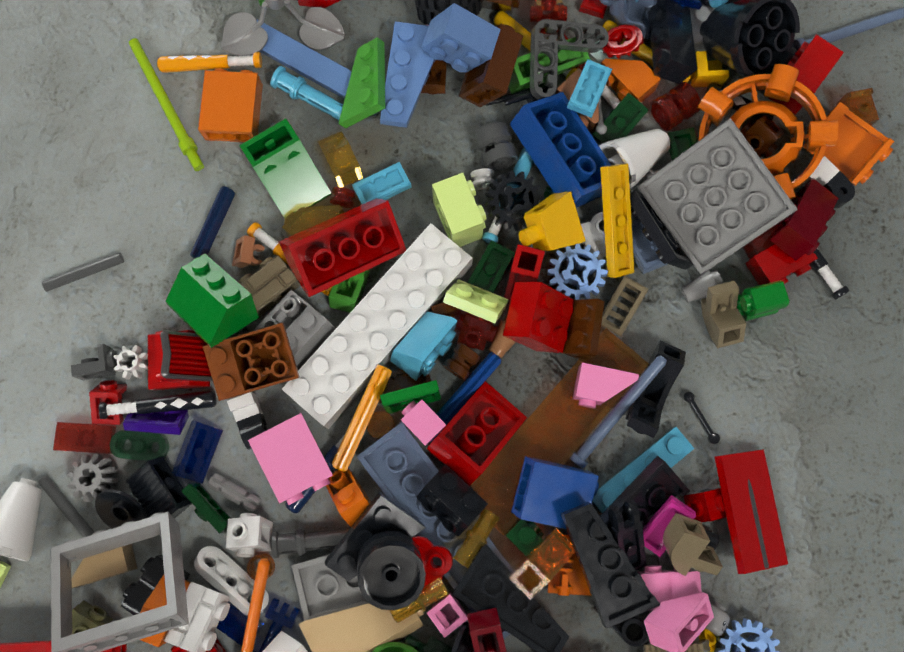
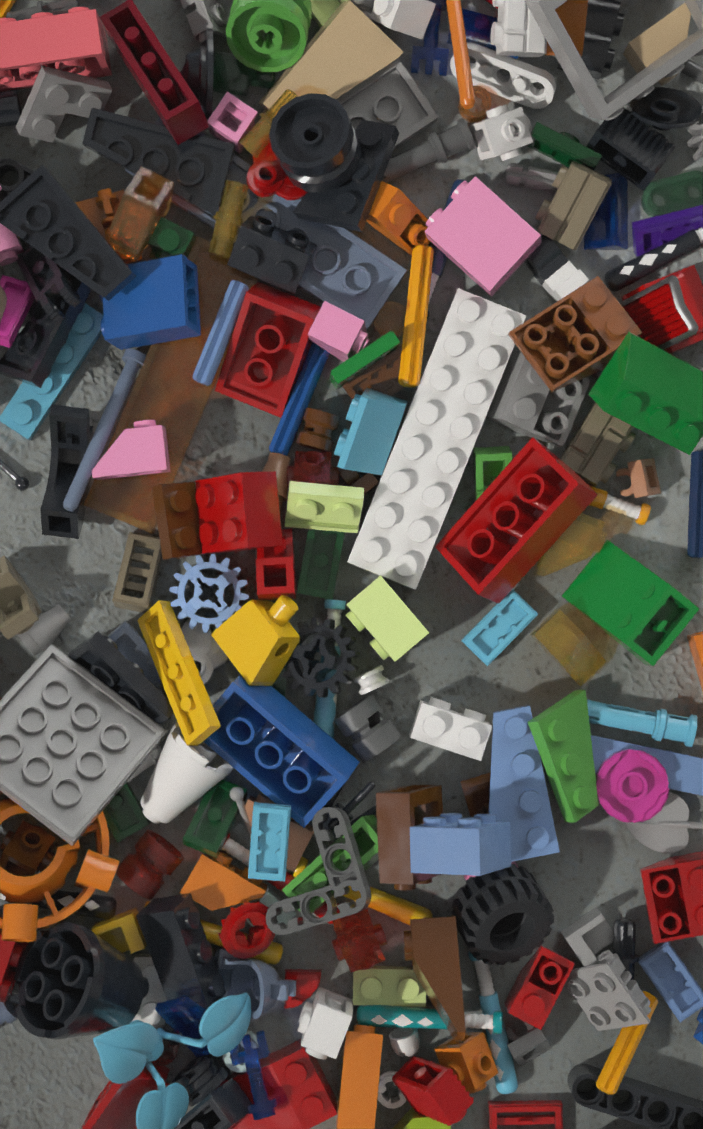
camera: 160 degrees right, 10 degrees up
(216, 462) = (573, 204): none -> dark tan brick
(330, 54) = (632, 785): none -> dark pink tile
(342, 197) = (544, 593): clear red bush -> none
(439, 127) = (451, 730): none -> white brick
(509, 454) = (220, 333): none -> medium blue axle

